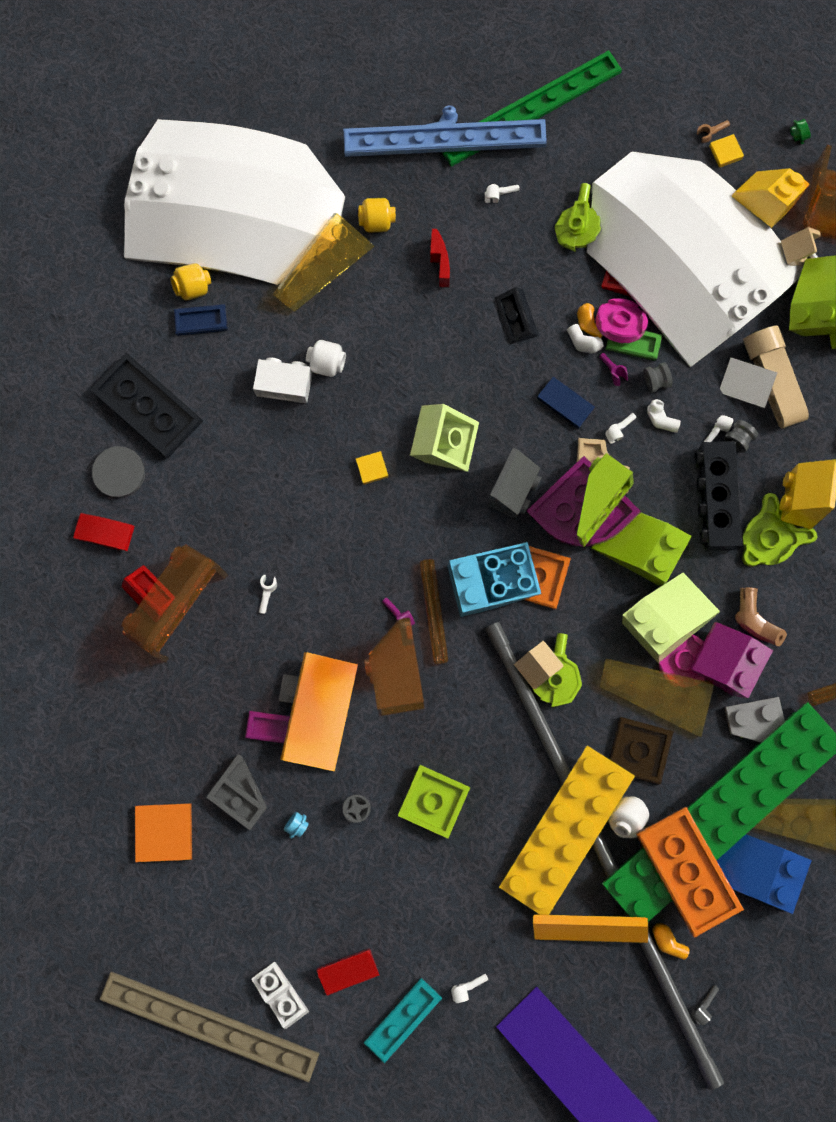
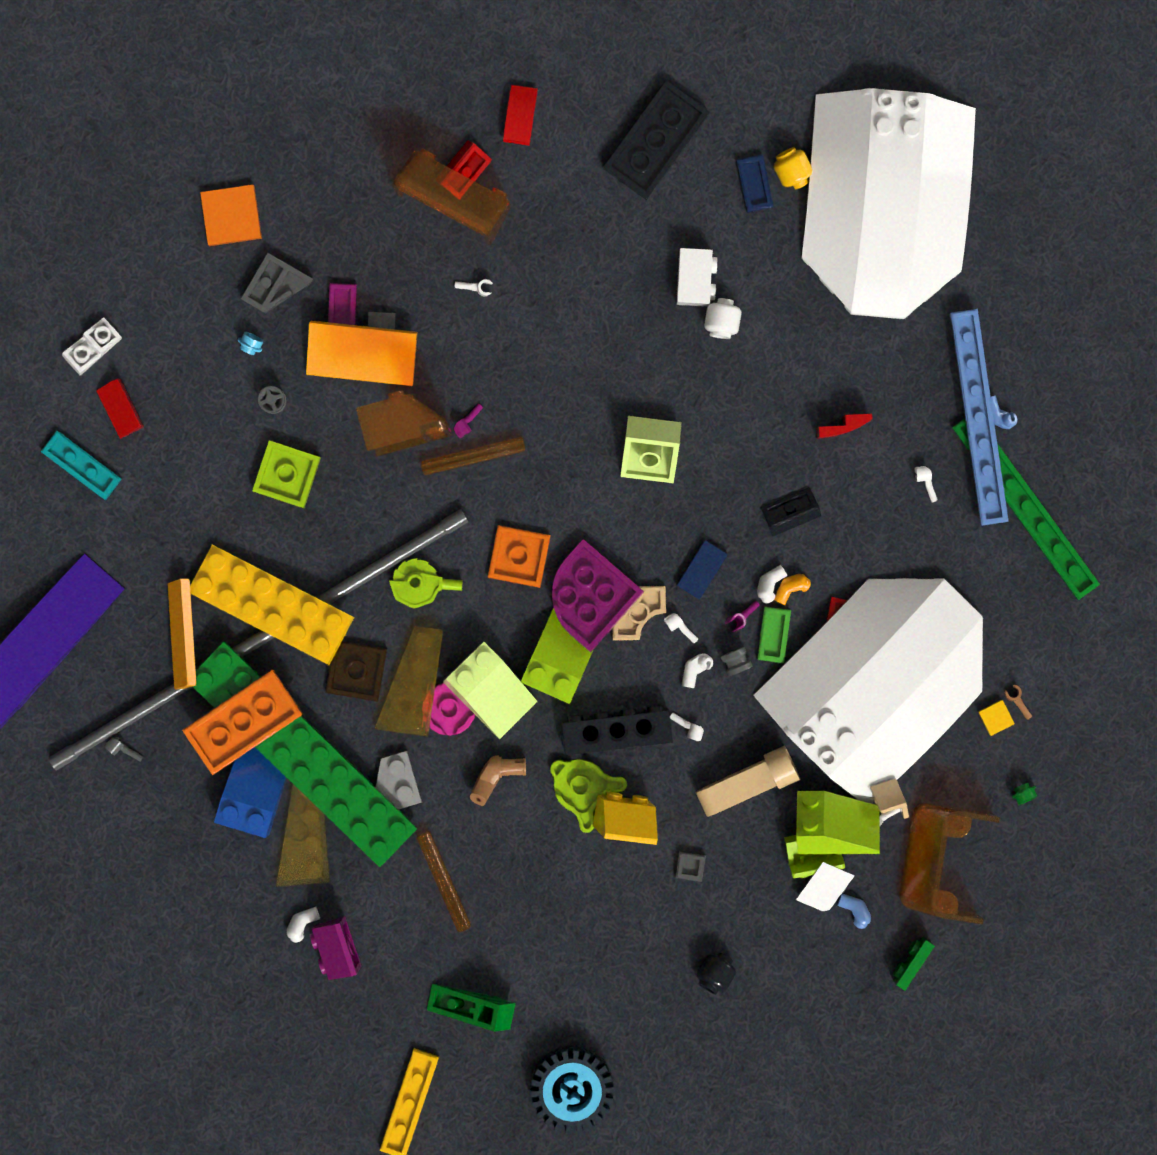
camera: 85 degrees right, 10 degrees up
(118, 472) = (584, 121): dark grey tile -> none
(209, 1026) = (56, 282): dark tan tile -> none
(327, 257) = (830, 305): clear yellow wing -> none
(372, 468) = (614, 378): yellow tile -> none
(376, 215) = (885, 354): yellow head -> none
(460, 992) = (109, 517): white hand -> none
(493, 579) = (509, 512): medium azure slope -> none
(514, 485) = (606, 524): dark grey slope -> none
(538, 665) = (427, 564): tan panel -> none
(578, 223) = (897, 566): lime piece -> none
(604, 490) = (599, 609): lime slope -> none
(621, 321) = (793, 619): dark pink tile -> none
(629, 817) = (289, 663): white head -> none
(667, 942) = (176, 709): light orange arm -> none
(731, 660) = (451, 751): magenta slope -> none
(742, 435) = (682, 750): dark grey wheel -> none
(748, 382) = (738, 753): white sticker -> none
(771, 193) = (946, 764): yellow slope -> none

